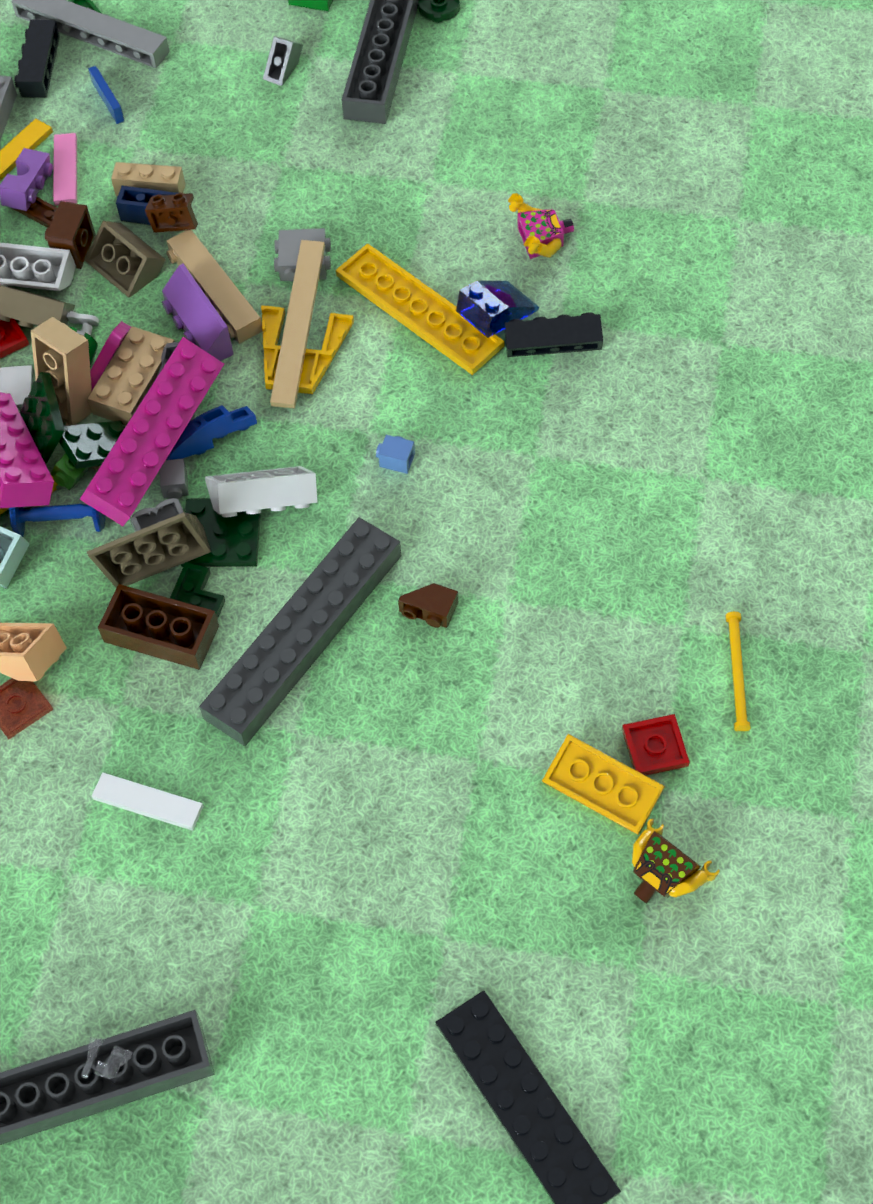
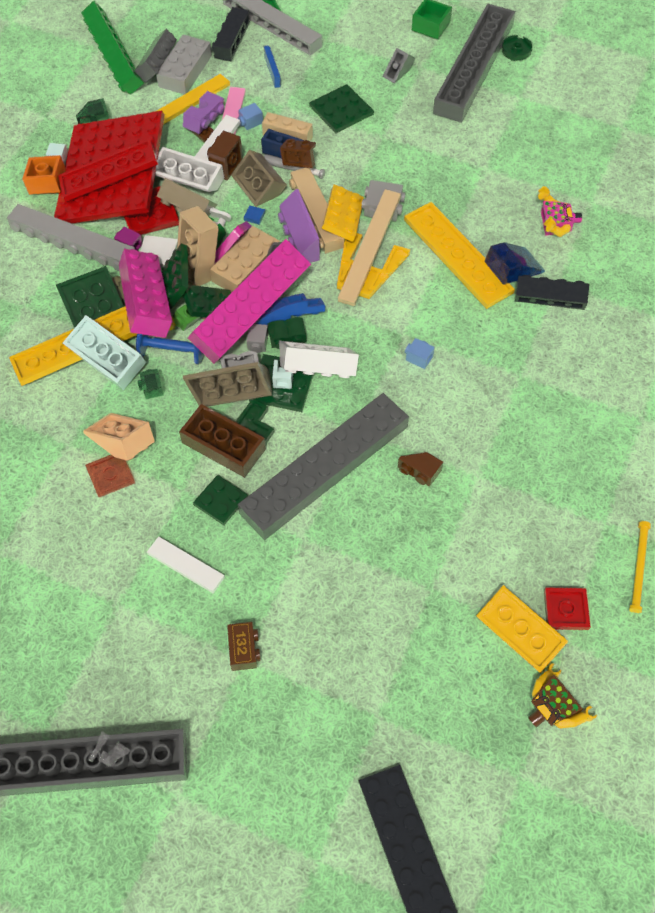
camera: 10 degrees right, 0 degrees up
(42, 571) = (150, 383): none -> clear green brick
(63, 190) = (227, 124): none -> white tile
(92, 172) = (250, 116): none -> medium blue brick
(130, 309) = (254, 215): none -> blue tile
(145, 229) = (277, 162): none -> light grey piece
(173, 706) = (220, 499): none -> dark green plate
(212, 460) = (287, 330): none -> dark green brick
(216, 135) = (341, 108): none -> dark green plate
(218, 526) = (281, 378): none -> light aqua panel
(247, 888) = (242, 646): none -> reddish brown brick
(251, 283) = (342, 213): none -> yellow plate

